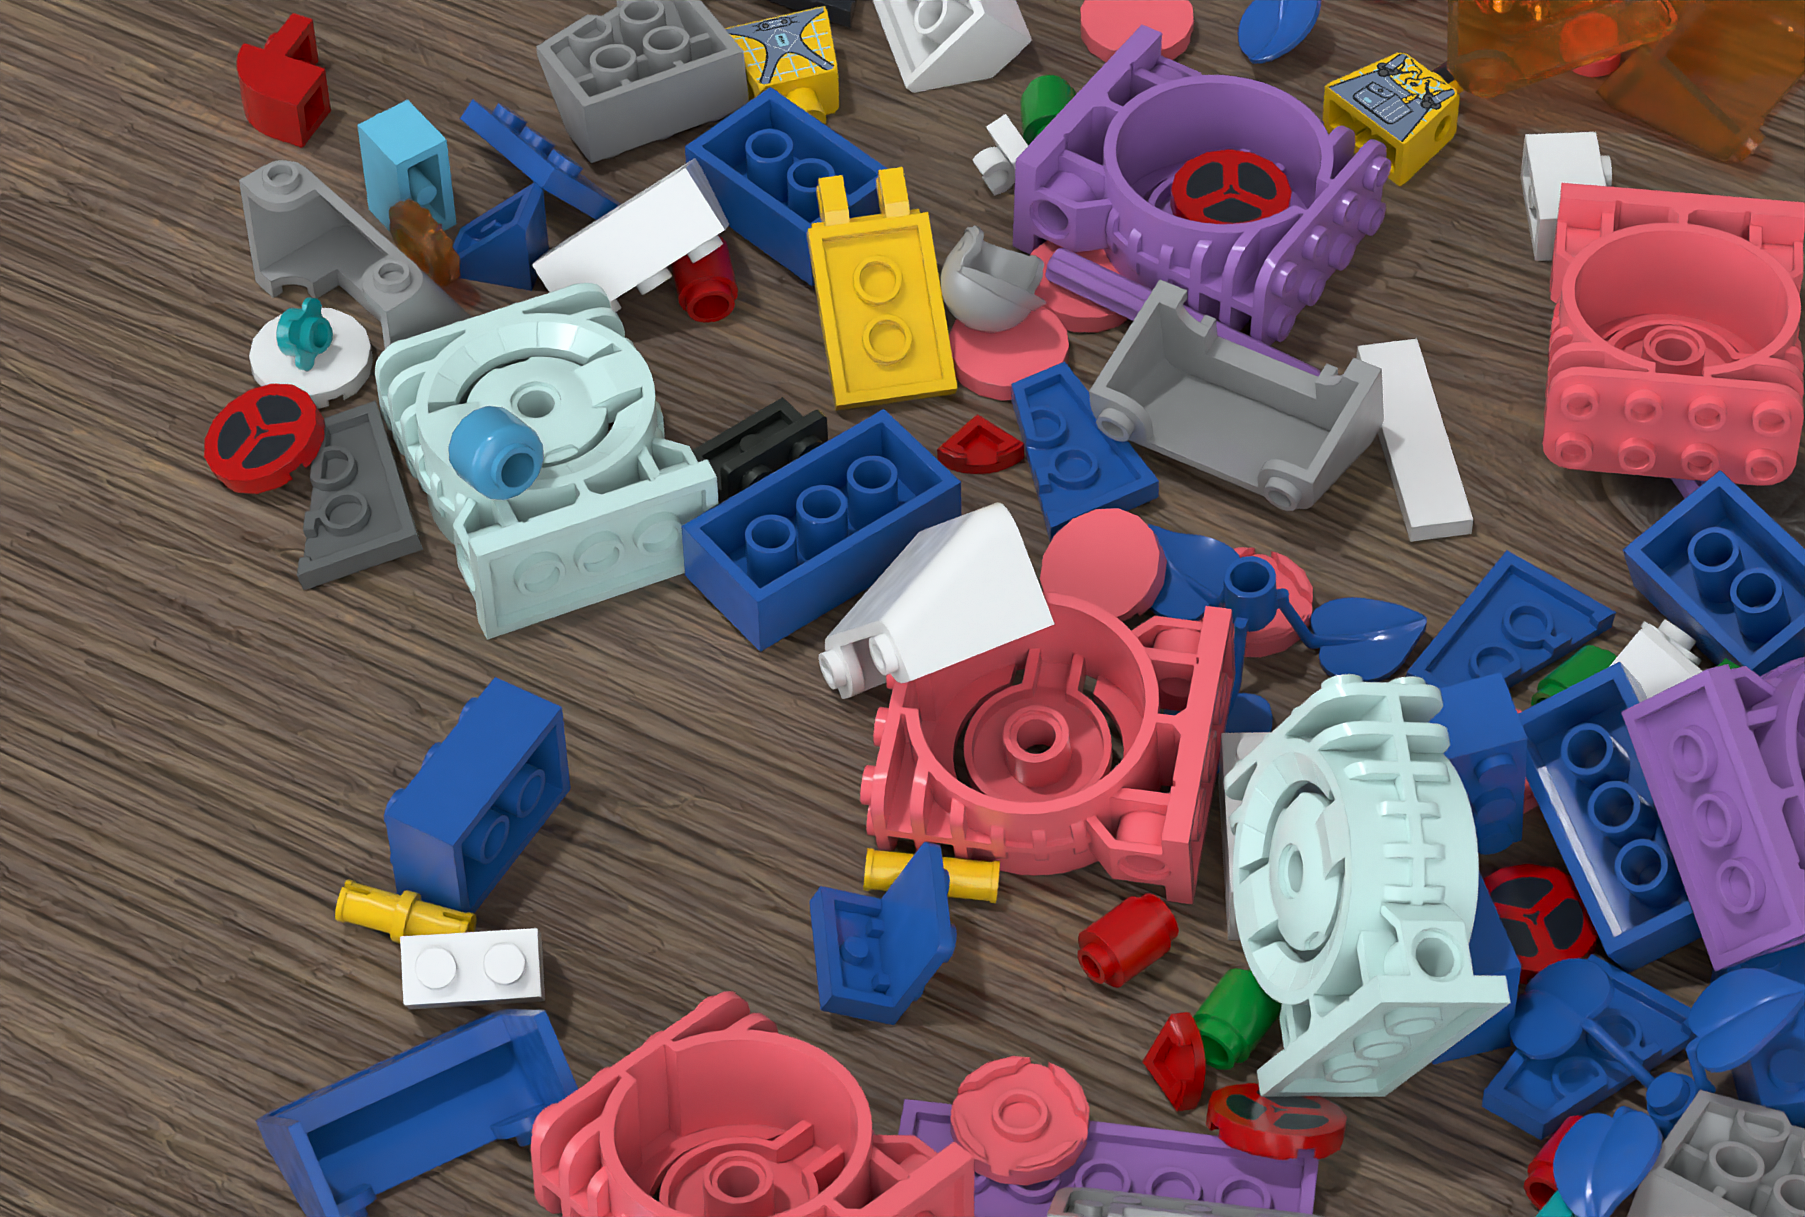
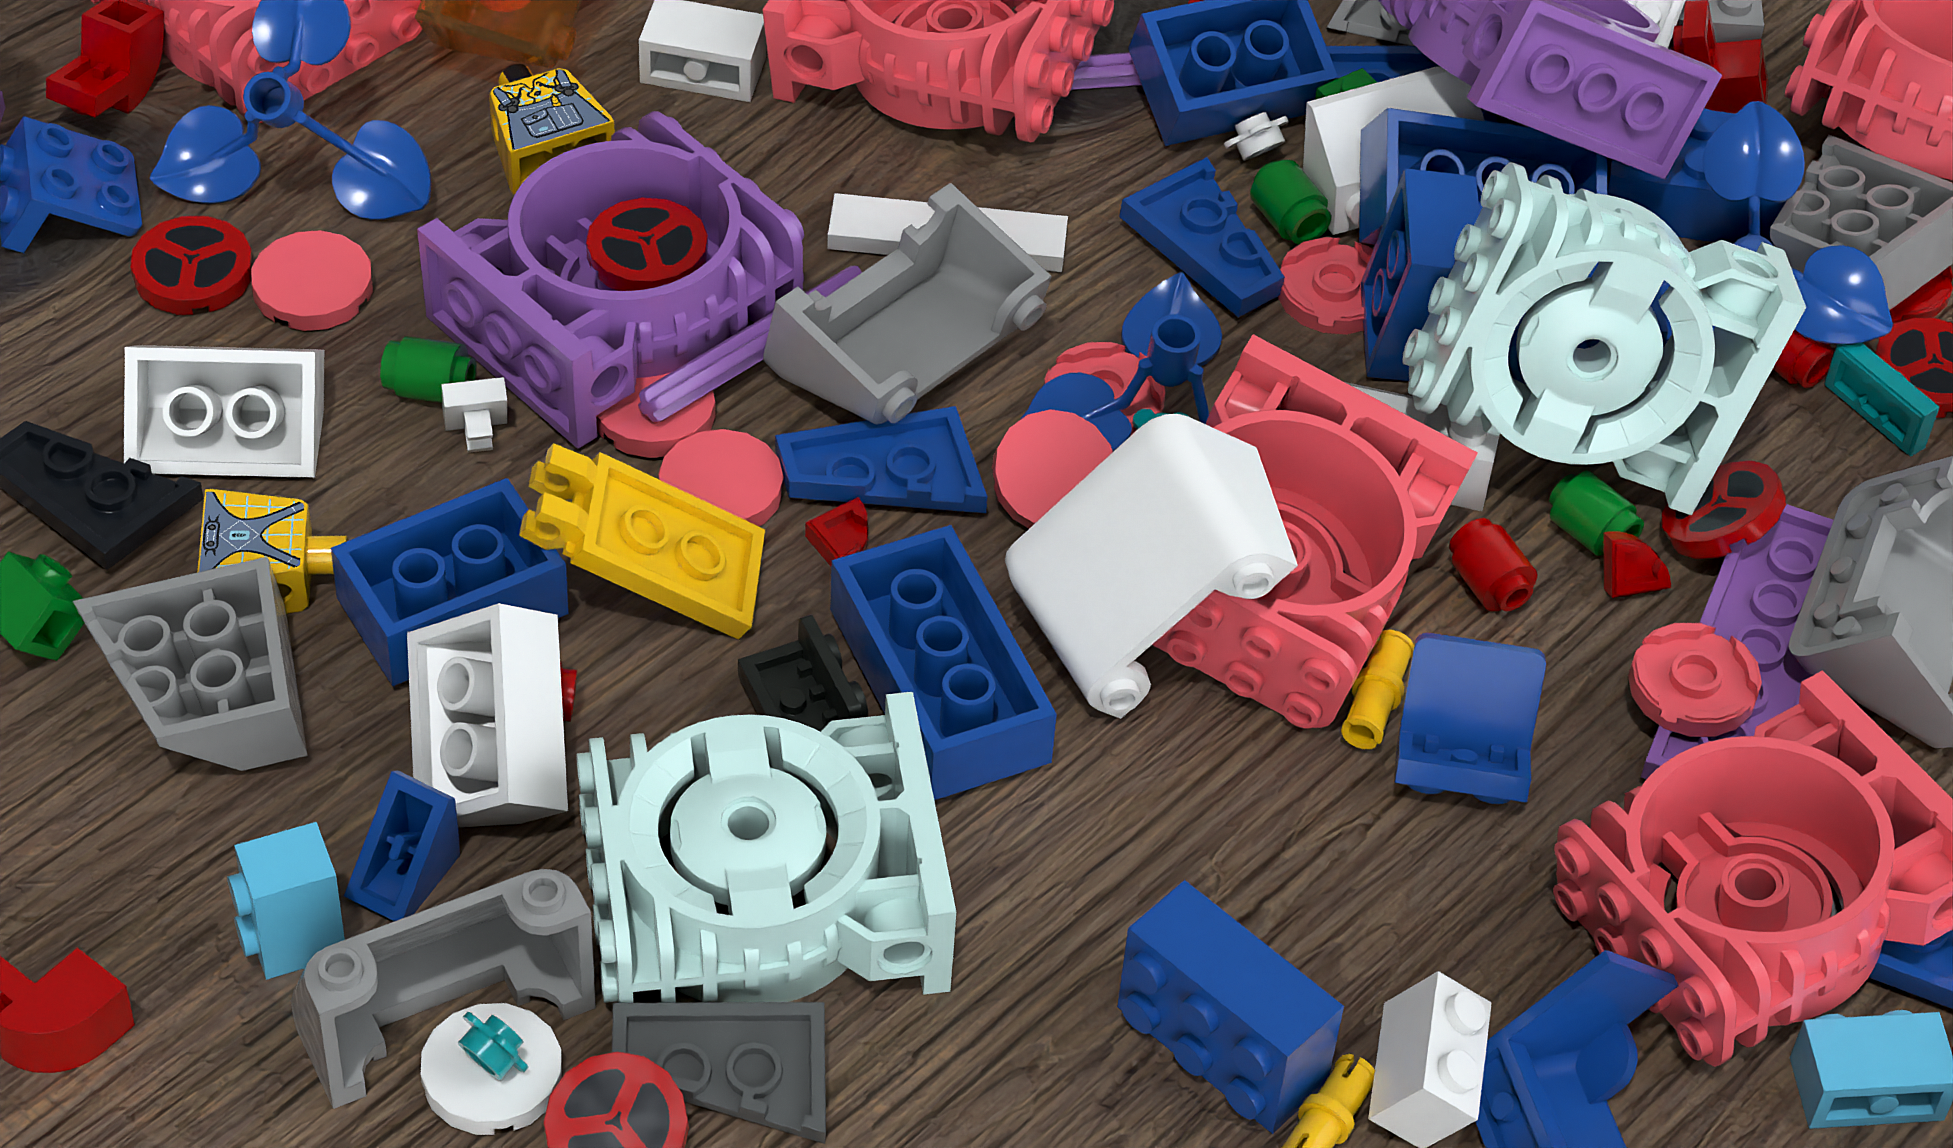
camera: 80 degrees left, 0 degrees up
(424, 241) = (396, 900): clear orange gear -> none
(496, 452) = (848, 849): dark azure head -> none
(538, 158) = (303, 785): blue wing -> none
(989, 284) = (678, 457): light grey helmet -> none

